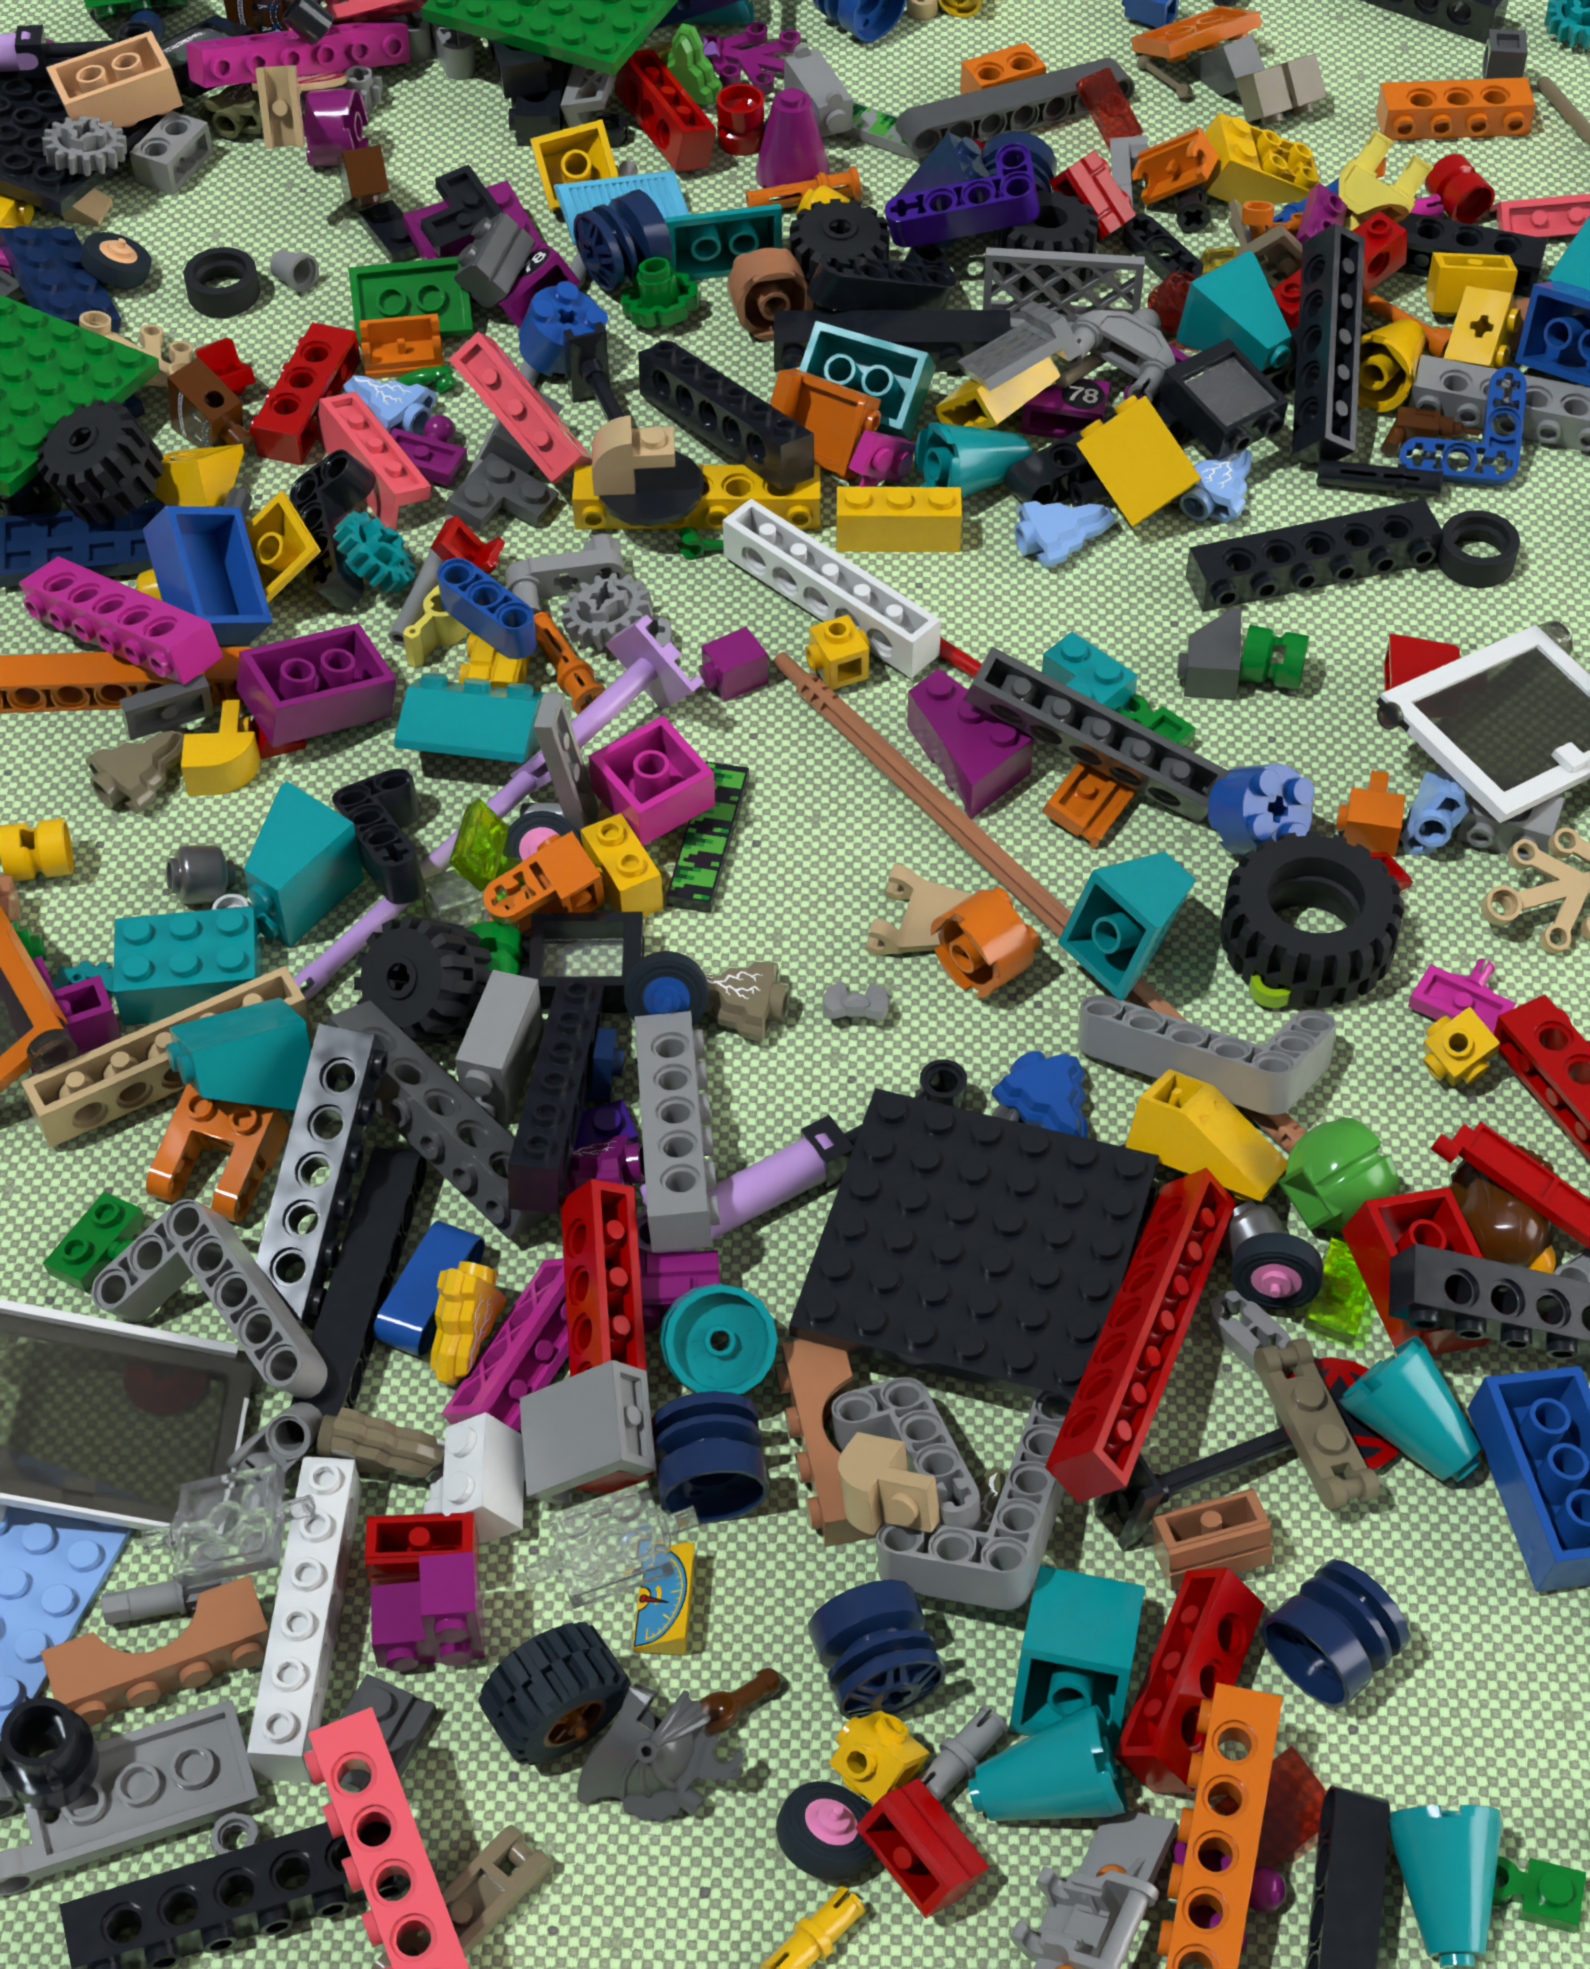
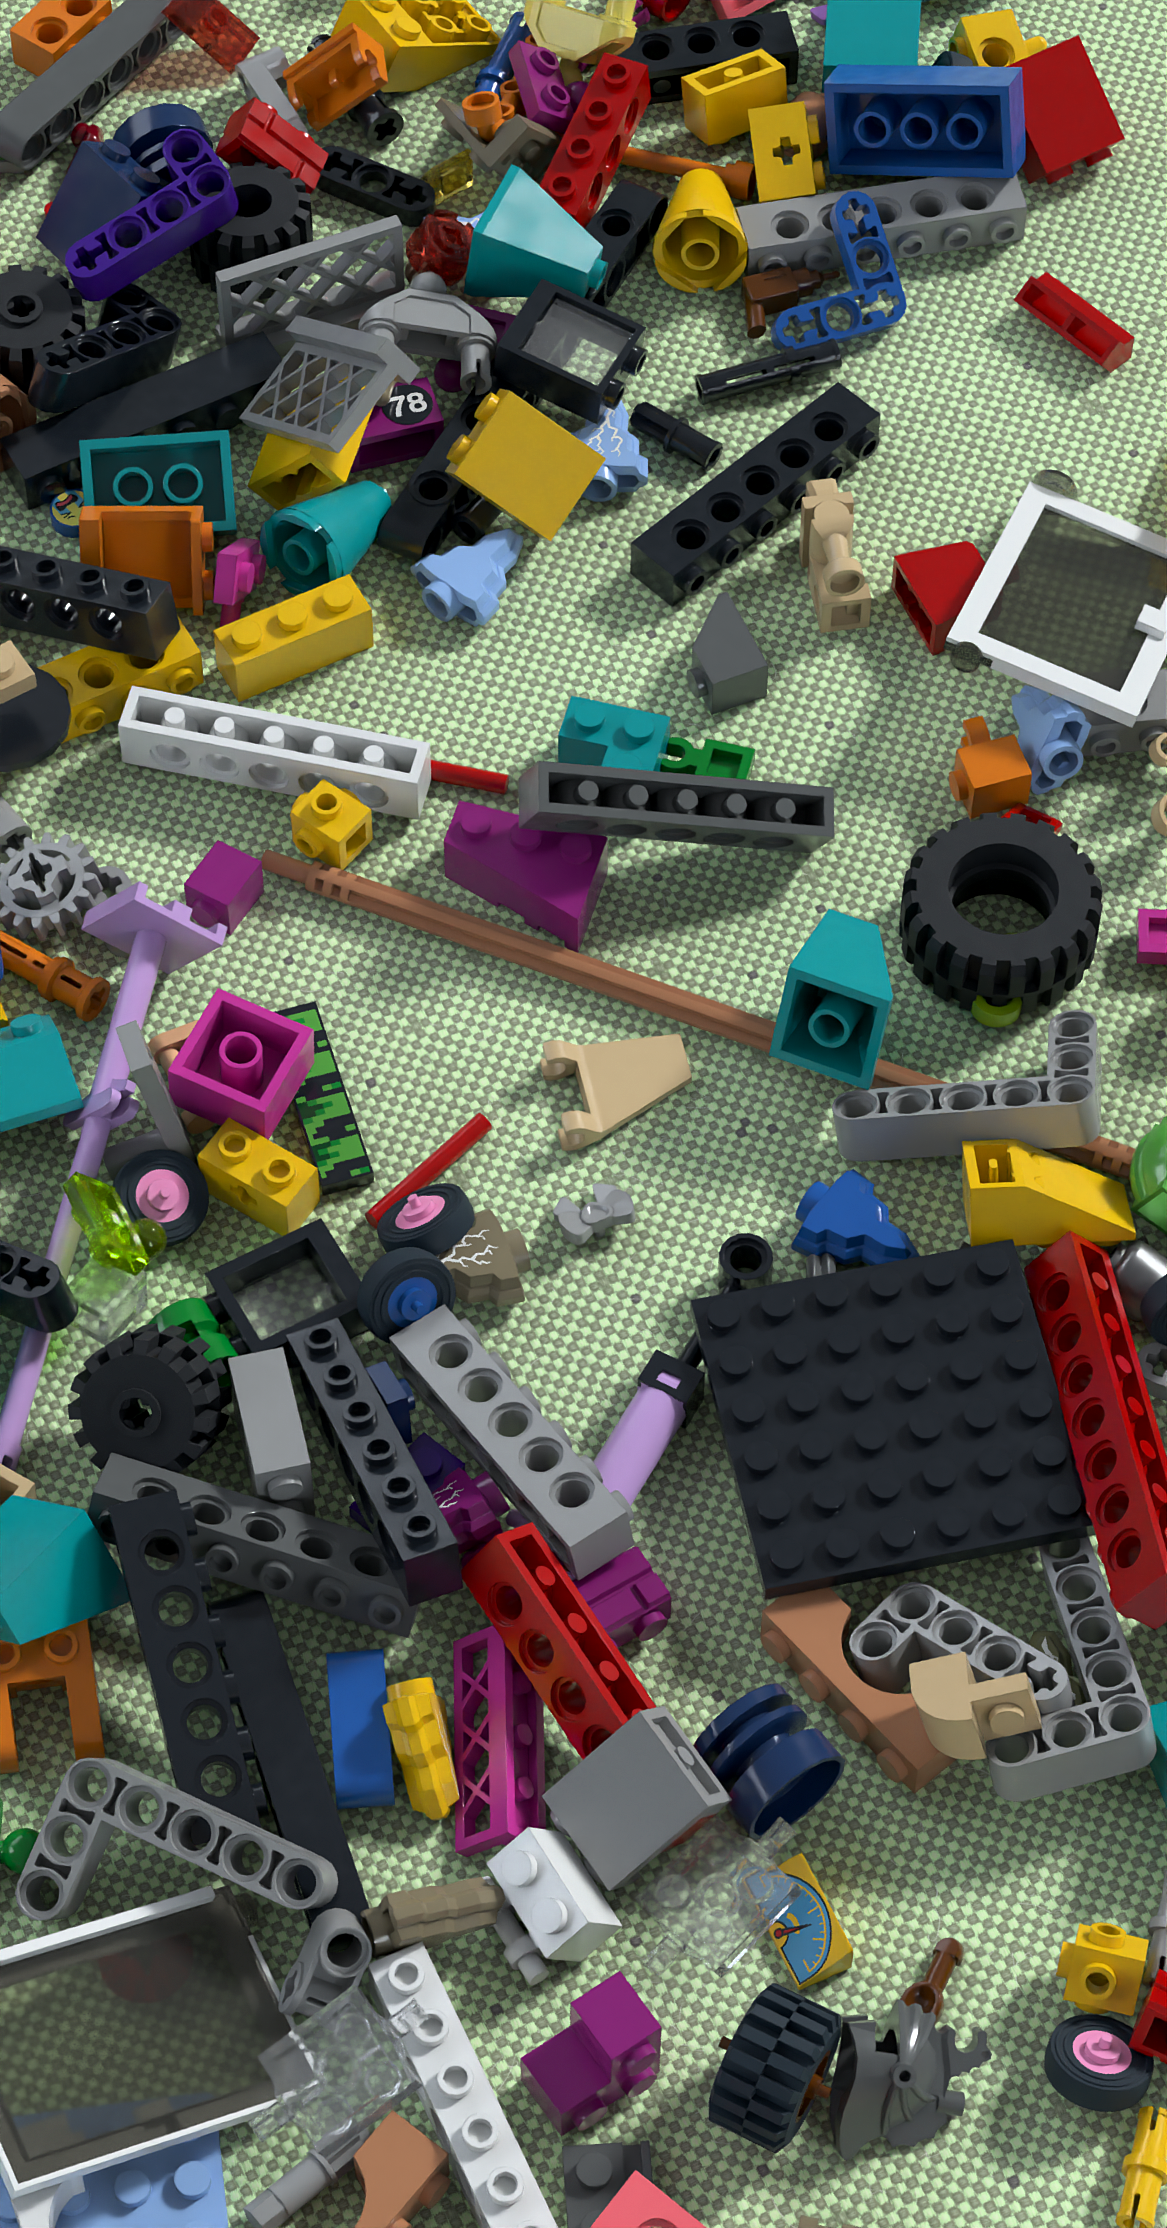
camera: 30 degrees left, 5 degrees up
(398, 1541) = (536, 1997): red brick -> none
(556, 880) = (218, 1228): orange brick -> none
(688, 1331) = (701, 1638): teal wheel -> none
(693, 546) = (81, 764): green hand -> none
(723, 949) = (427, 1219): none -> black wheel
(754, 920) = (433, 1165): none -> red bar
(876, 1649) = (1056, 1876): dark blue wheel -> none
(984, 941) = (694, 1088): orange brick -> none
(1088, 802) = (694, 882): orange plate -> none
(1258, 655) = (771, 632): green wheel -> none
(1259, 805) = (884, 814): blue brick -> none
(1279, 494) = (676, 435): none -> black axle
(1328, 346) = (644, 241): black brick -> none
(1343, 618) = (825, 547): none -> tan hips
(1482, 527) = (925, 387): black tyre -> none

